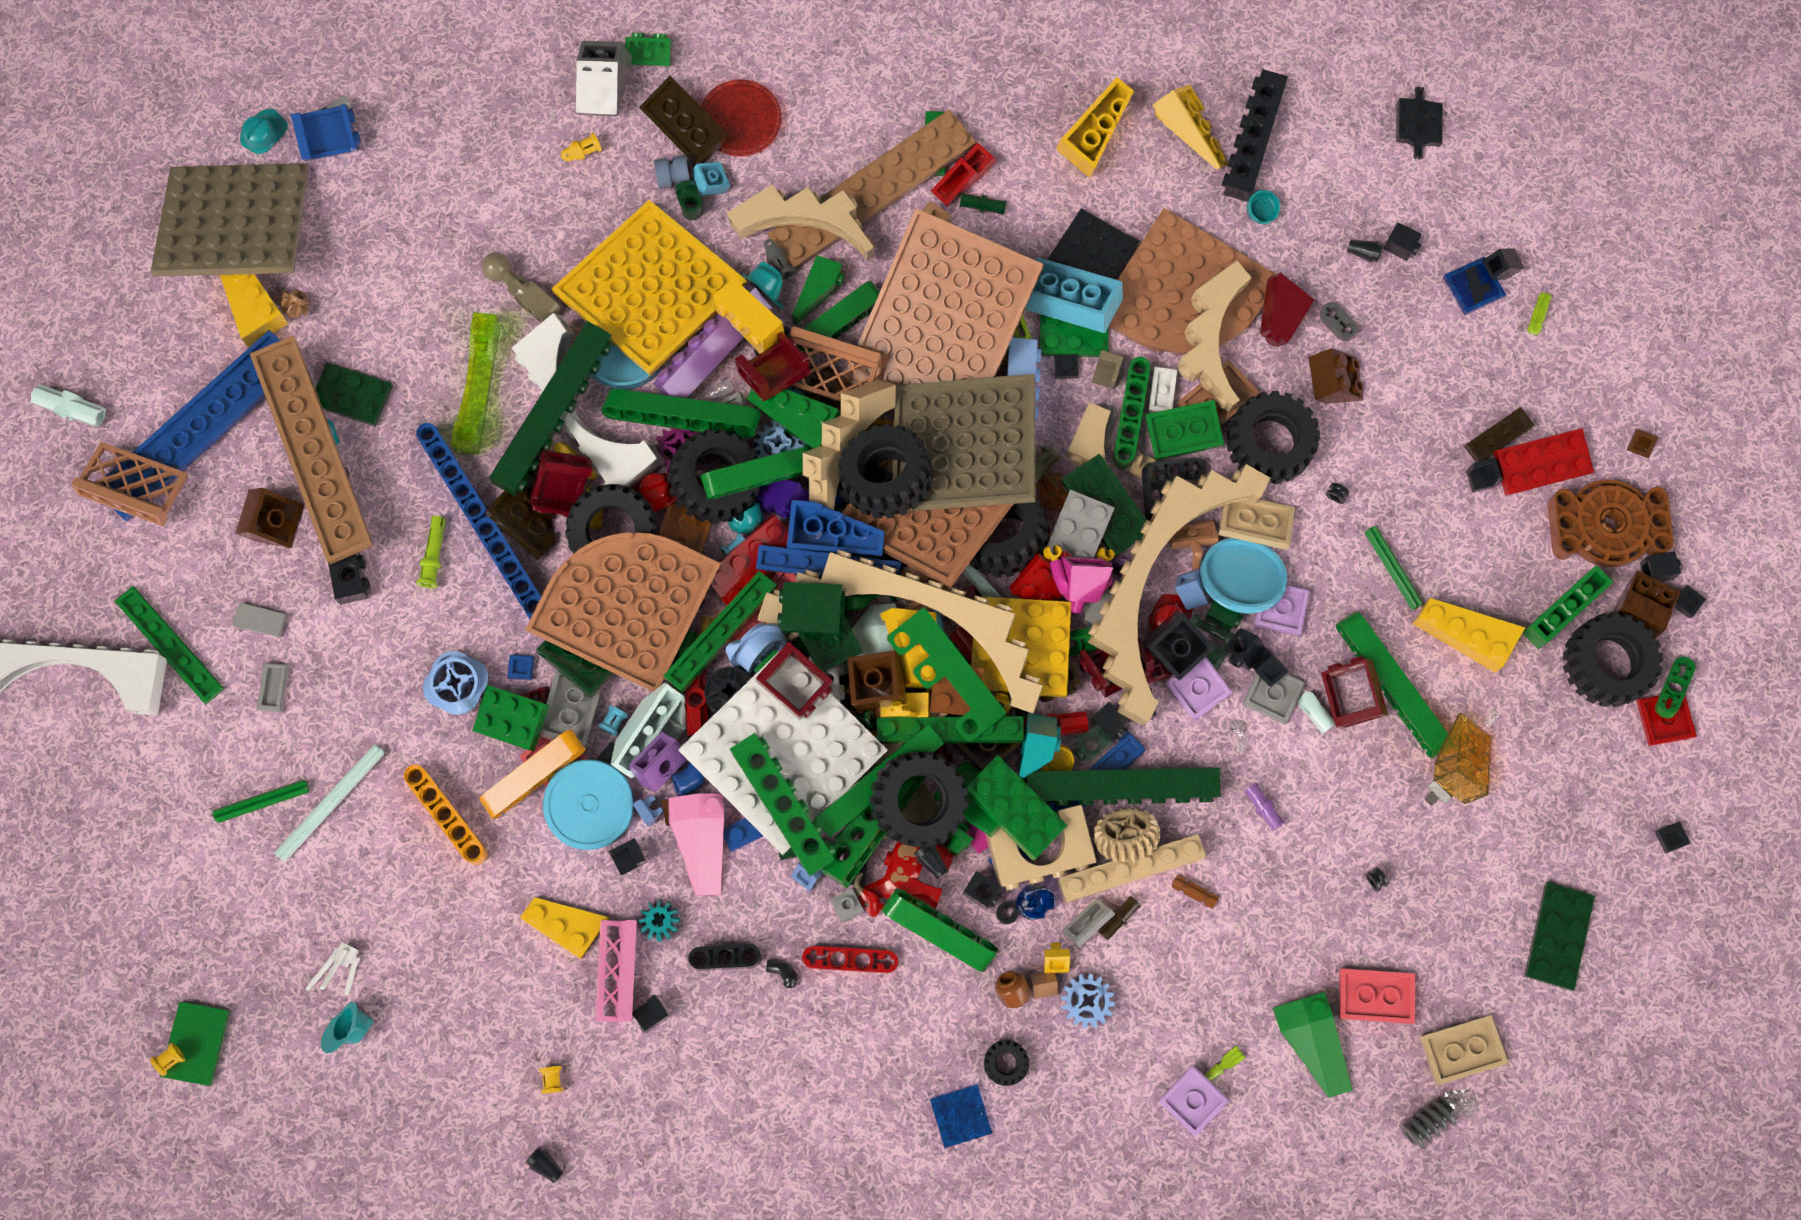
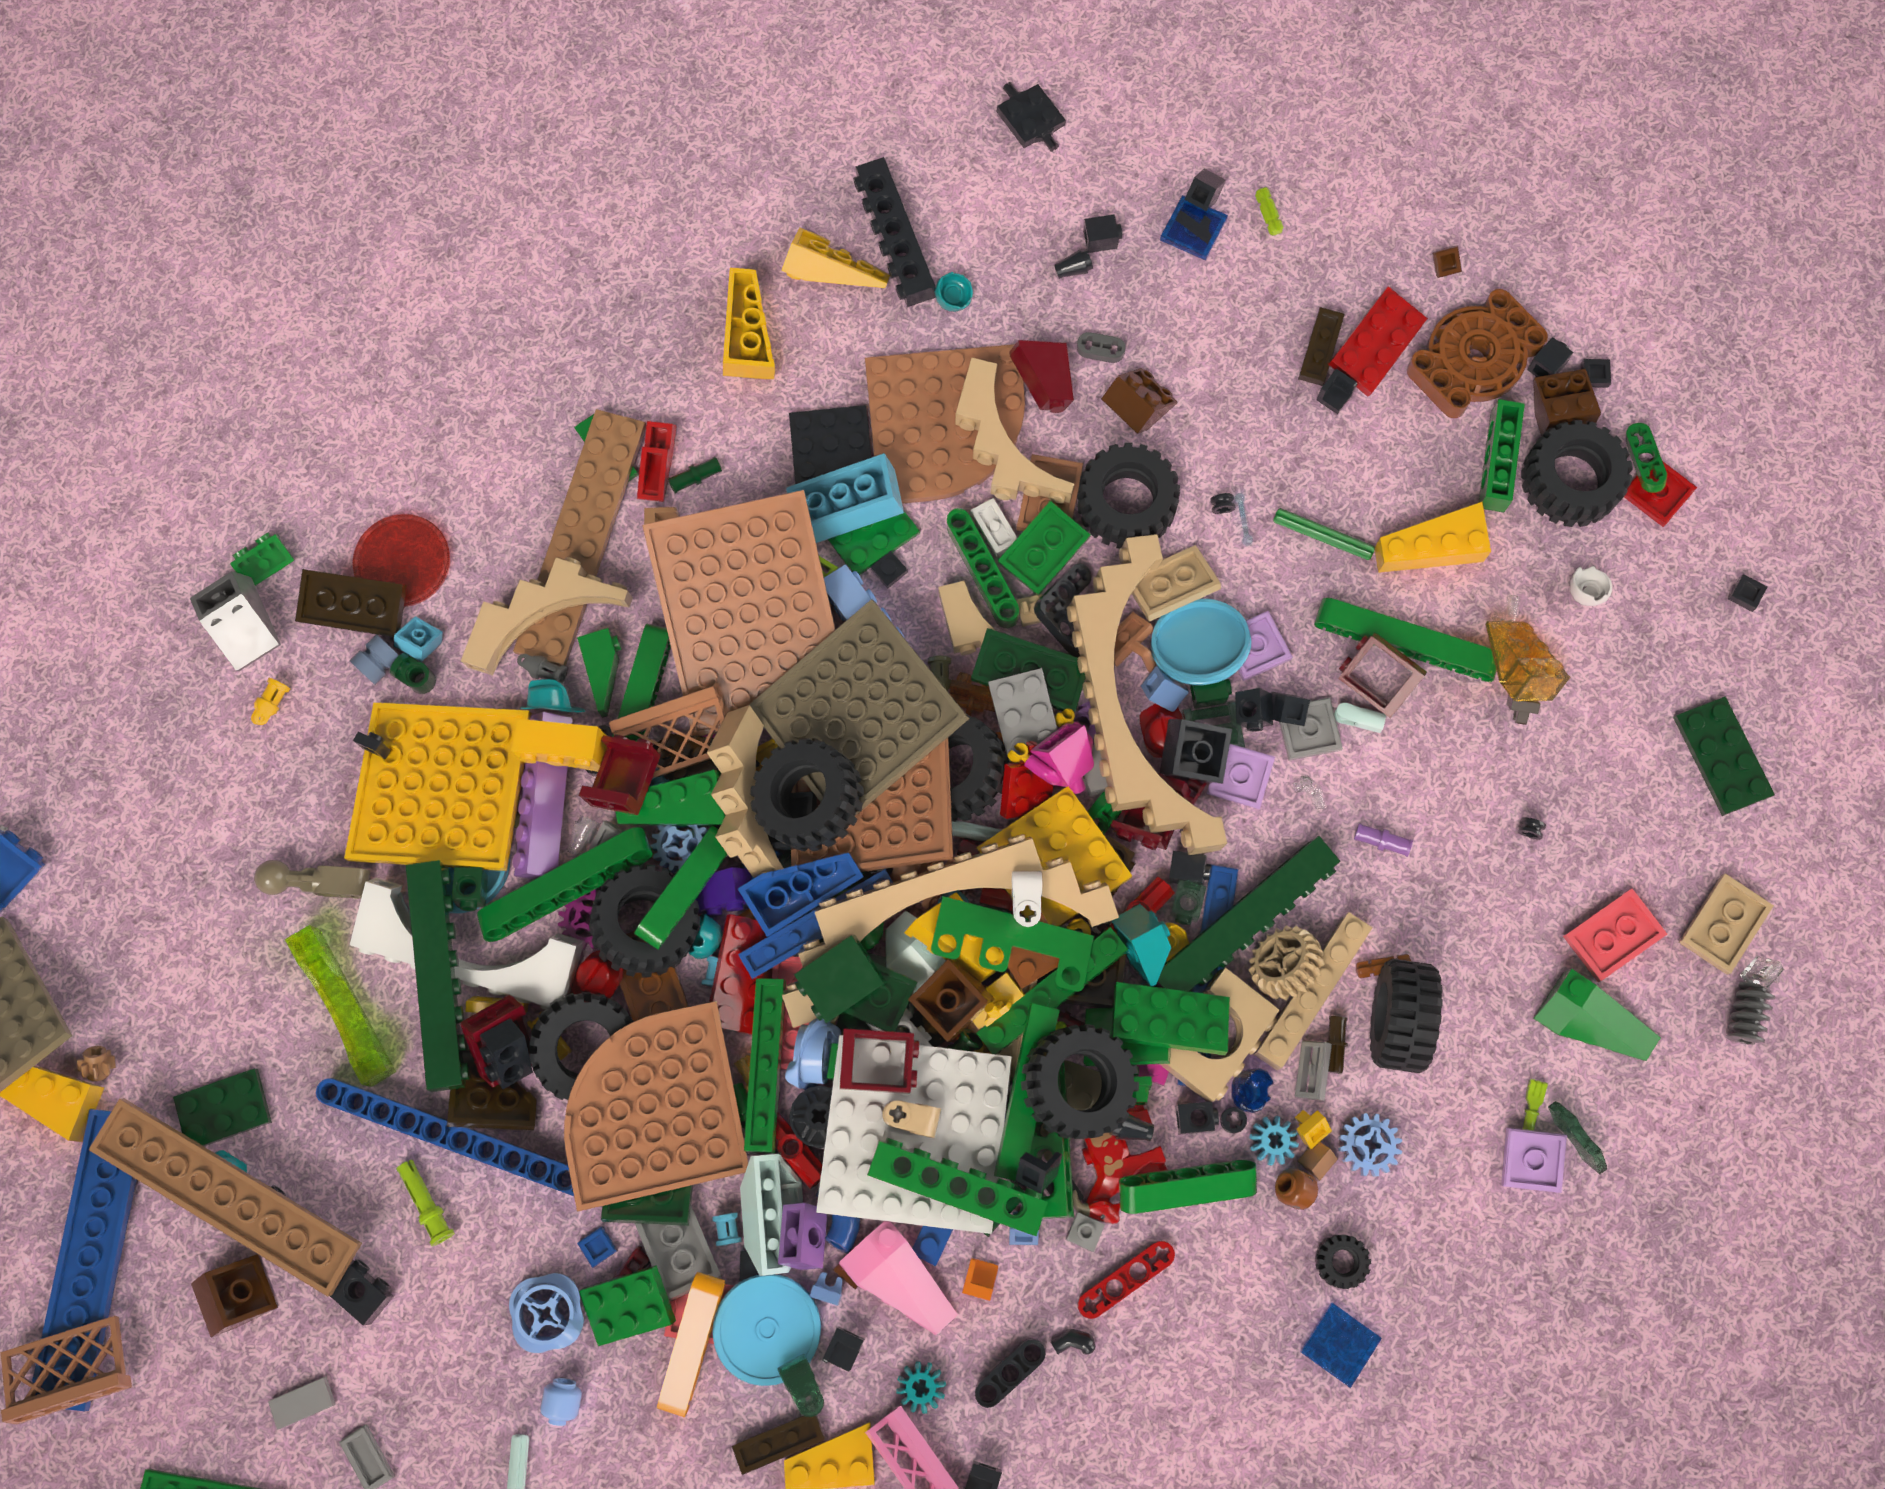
camera: 30 degrees left, 0 degrees up
(421, 746) = (561, 1401): none -> light blue head
(435, 809) = (621, 1452): light orange beam -> none
(539, 883) = (778, 1443): none -> dark brown plate
(557, 493) = (505, 1054): none -> black brick
(583, 854) = (800, 1384): none -> clear green piece
(619, 360) = (468, 877): none -> dark green brick
(627, 226) = (372, 743): none -> black plate
(753, 882) = (980, 1279): none -> orange panel
(792, 739) = (917, 1118): none -> tan piece
(843, 837) = (1037, 1173): none -> black panel
(983, 645) = (1027, 891): none -> white piece
(1029, 952) = (1283, 1140): none -> medium azure gear
(1107, 369) = (929, 544): dark tan panel -> none
(1179, 930) = (1406, 1016): none -> black tyre
(1236, 1120) = (1586, 1148): none -> clear green tile
(1336, 530) = (1247, 539): none -> clear light blue hinge
(1565, 749) = (1597, 590): none -> white hair

